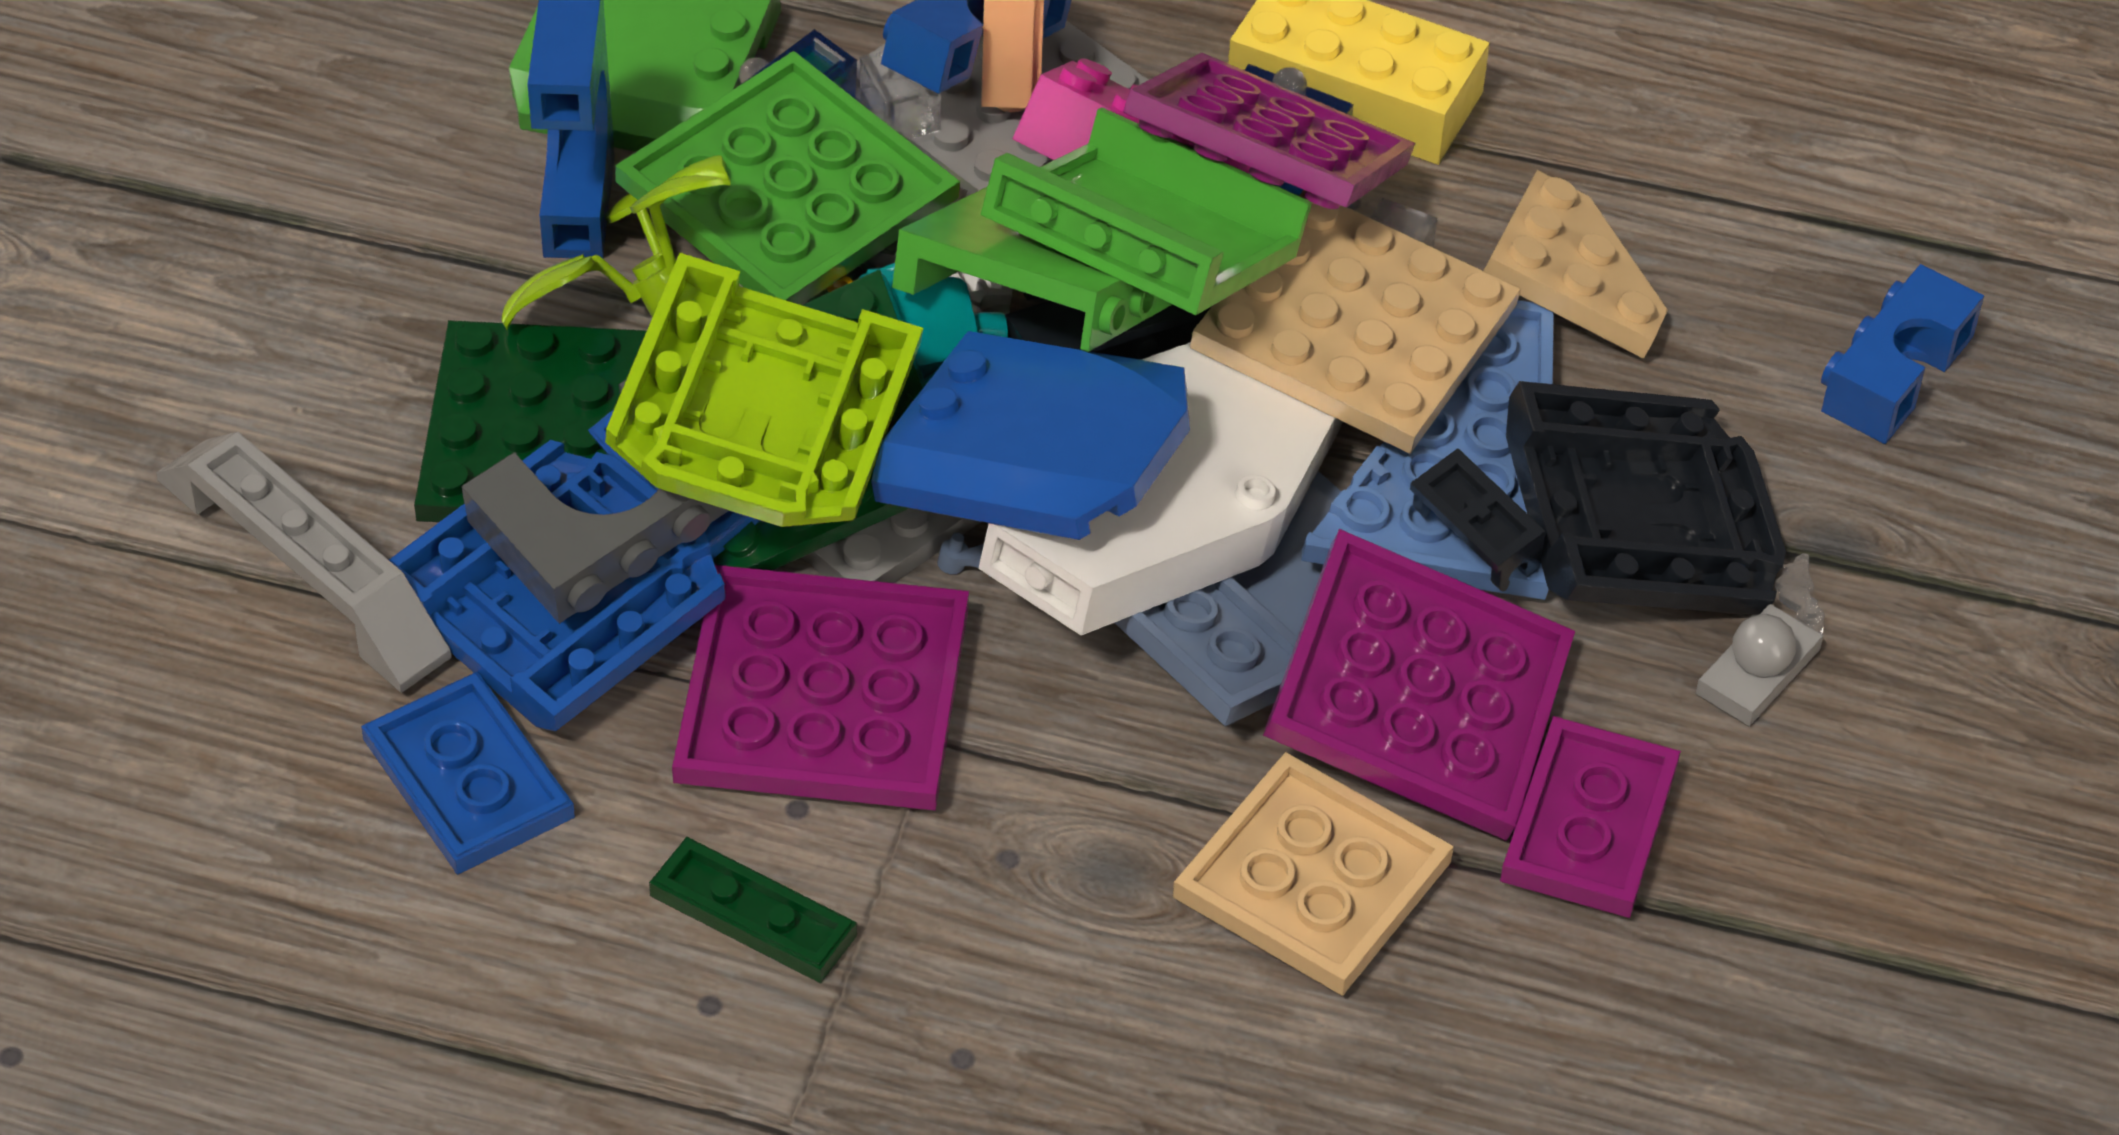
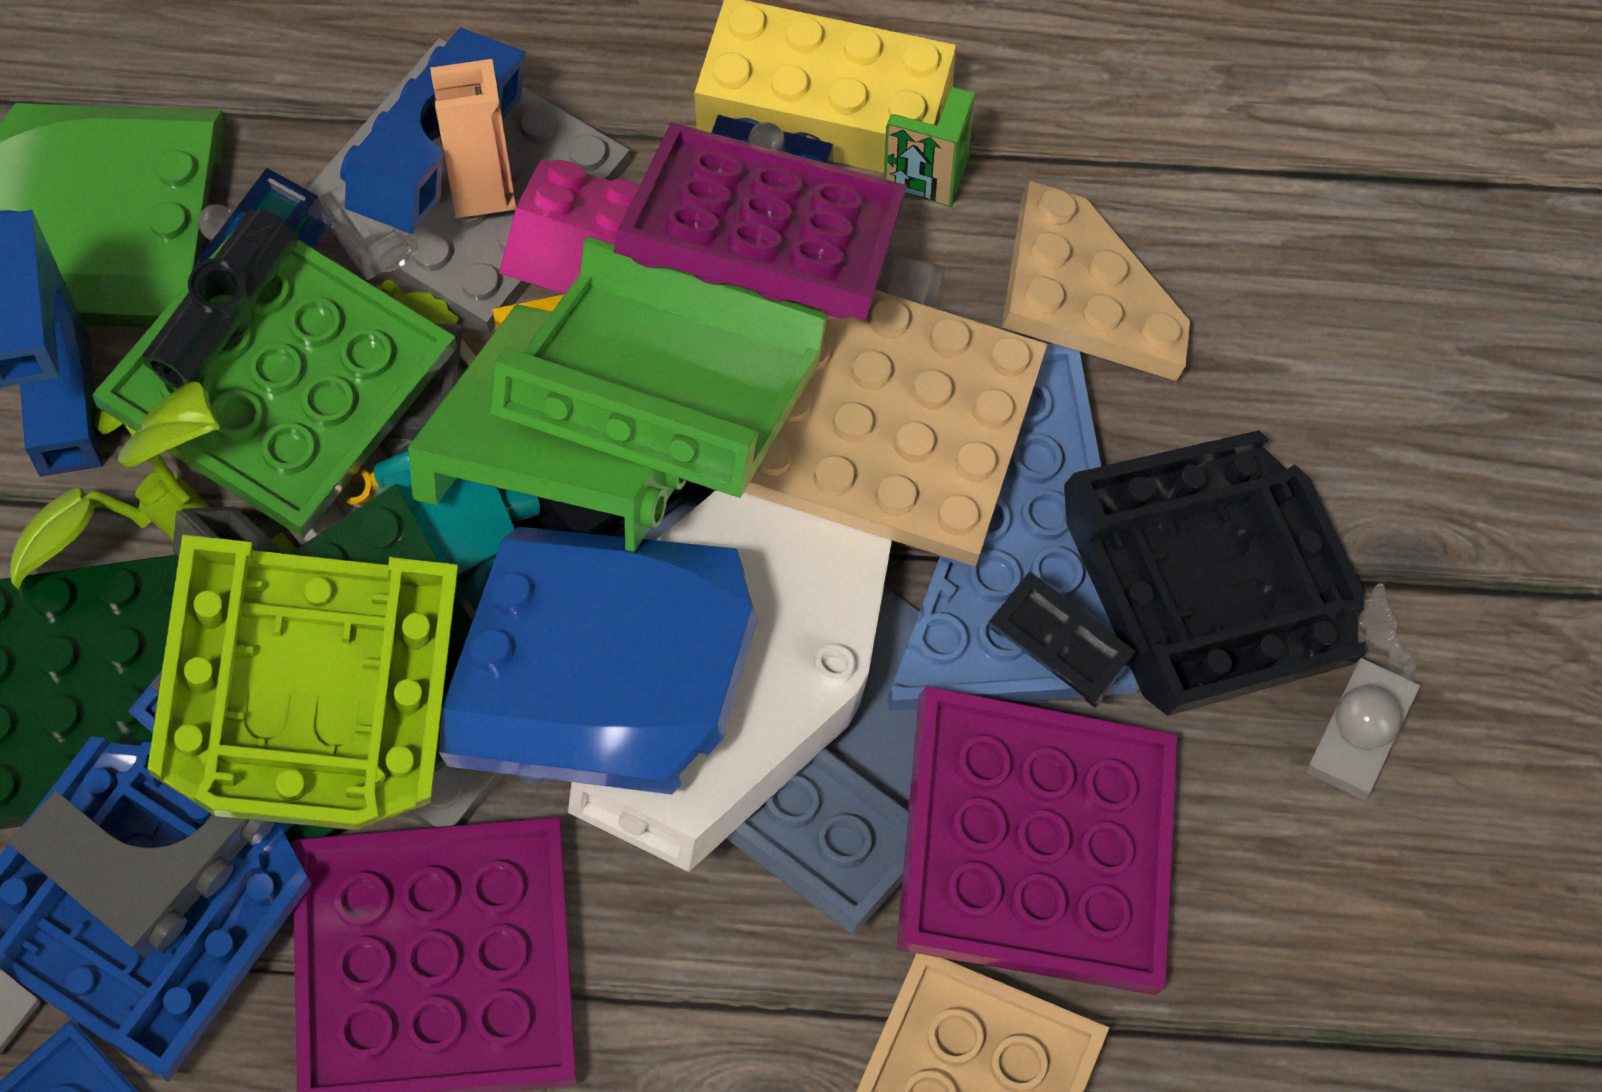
camera: 10 degrees left, 15 degrees up
(753, 102) = (202, 328): none -> black piece
(1447, 123) = (931, 156): none -> panel
(1590, 817) = (1236, 955): magenta plate -> none
(1876, 378) = (1412, 368): blue arch -> none

